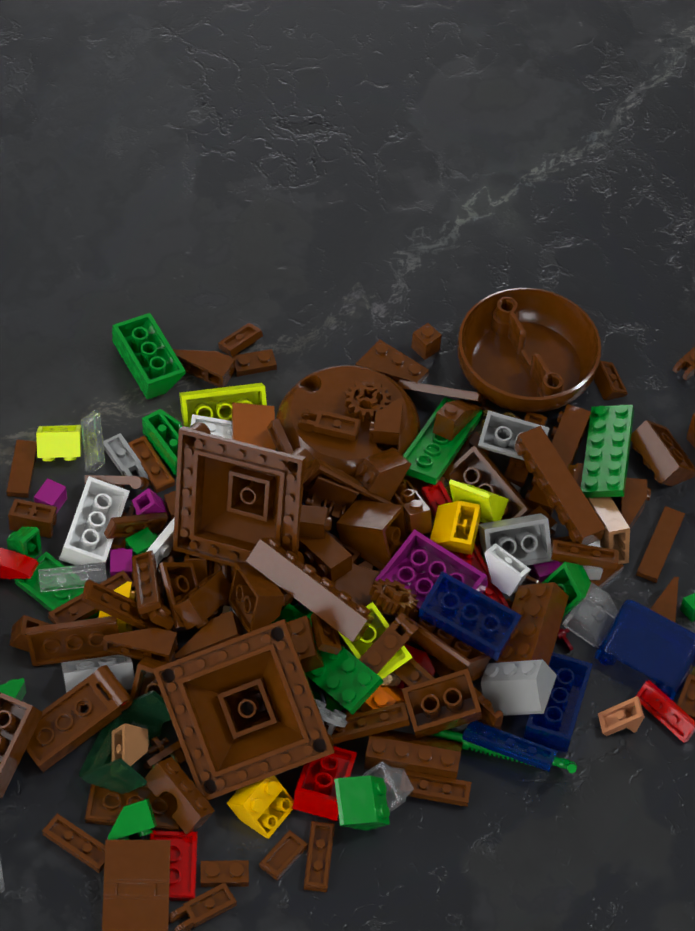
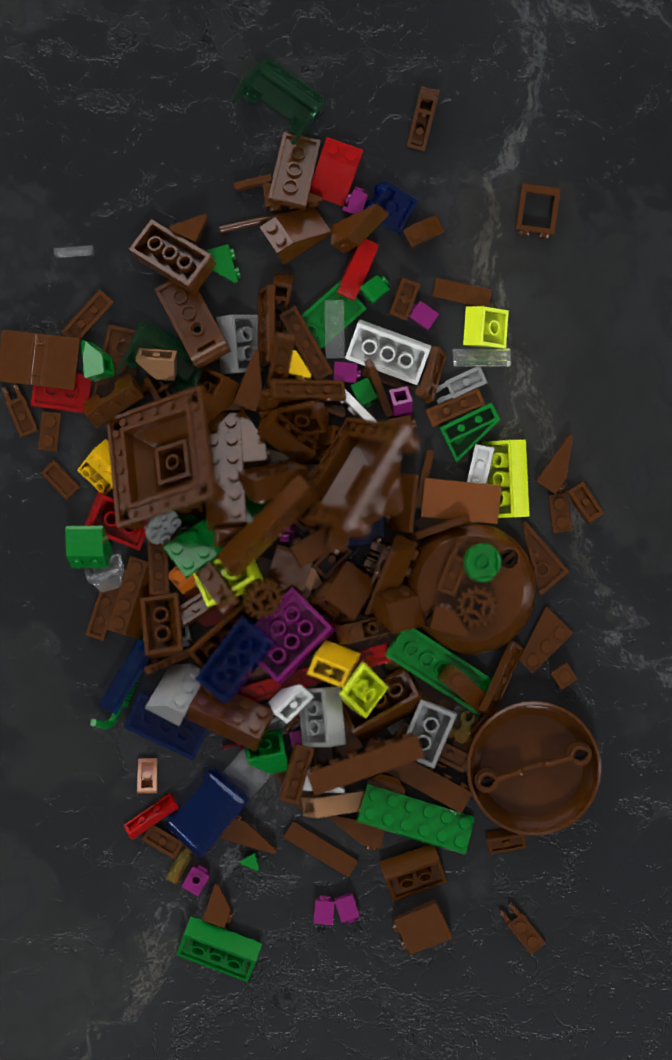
camera: 105 degrees right, 35 degrees up
(147, 355) = (570, 415): green slope -> none
(309, 363) = (546, 565): none -> reddish brown wing
(319, 399) = (482, 562): none -> green tile
(319, 856) = (56, 508): reddish brown tile -> none

